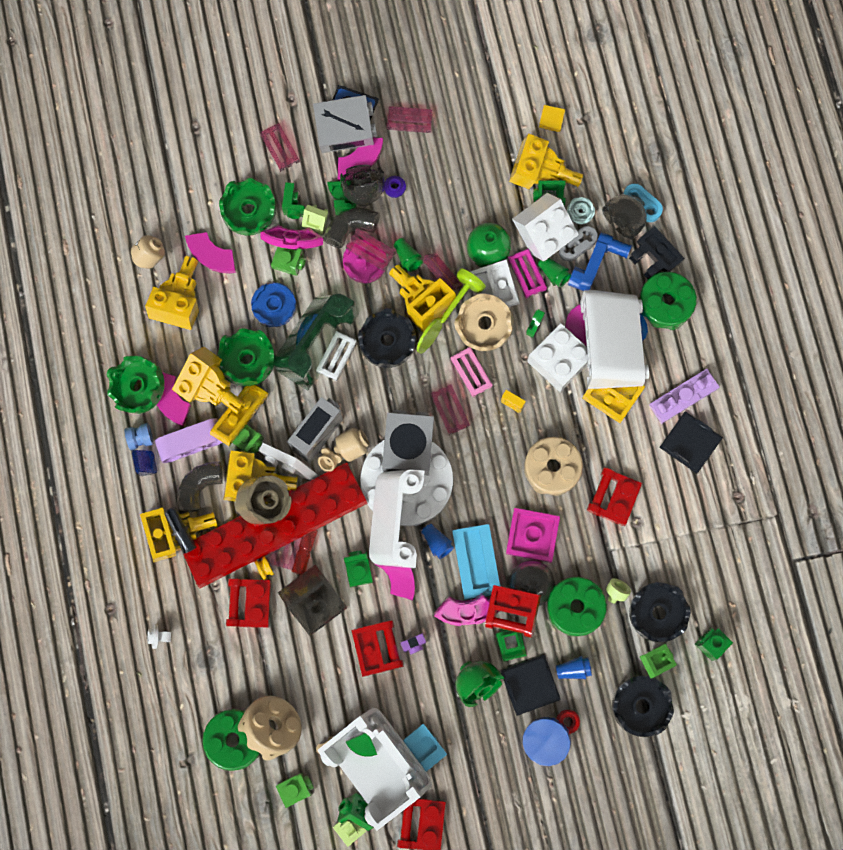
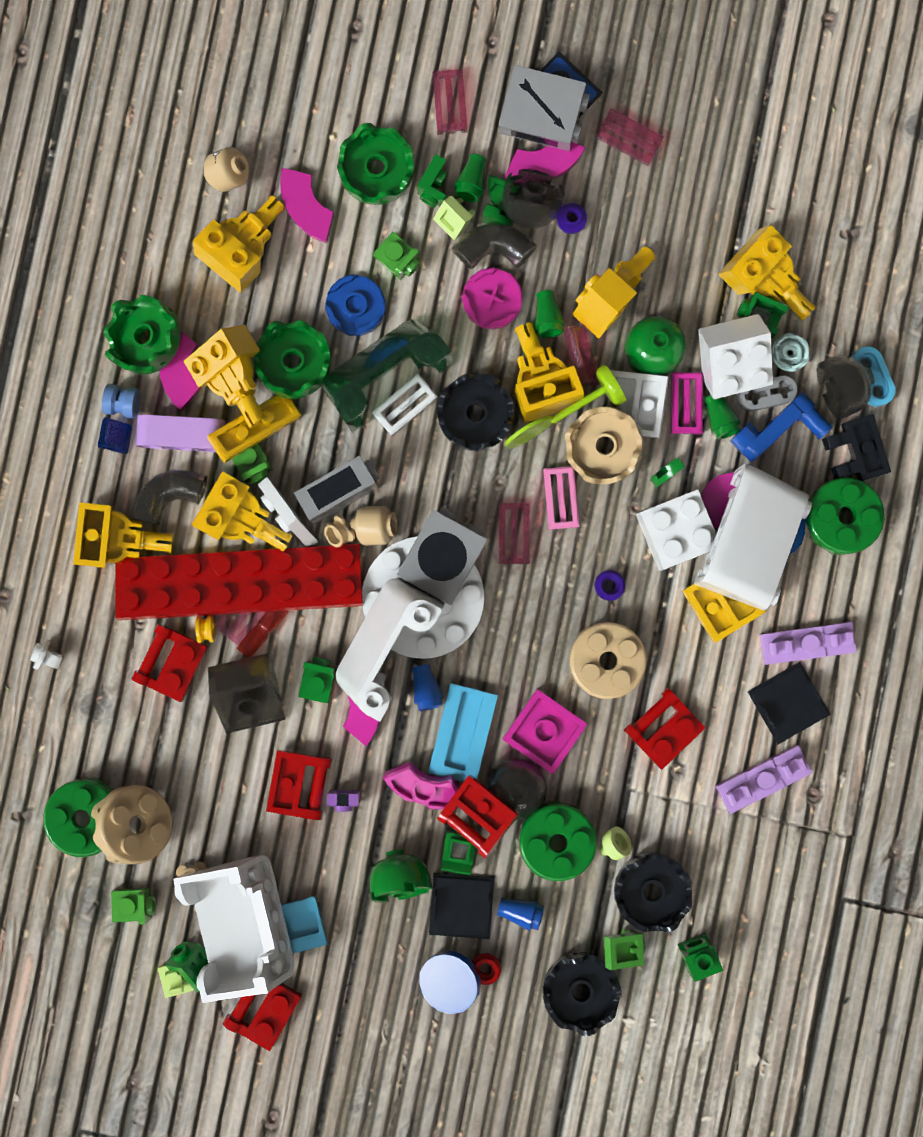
camera: 20 degrees right, 10 degrees up
(179, 530) = (120, 542): black axle -> none
(263, 500) = (222, 540): dark tan brick -> none
(291, 238) = (412, 230): dark pink tile -> none
(316, 189) = (471, 180): none -> green cone
(354, 239) = (490, 266): clear pink tile -> none
(362, 745) = (228, 895): green tile -> none
(443, 222) = (610, 294): none -> yellow brick
(513, 401) = (594, 558): yellow tile -> none
(531, 409) = (616, 578): none -> dark purple plate
(551, 118) = (810, 215): yellow tile -> none
(698, 501) = (763, 779): none -> lavender plate

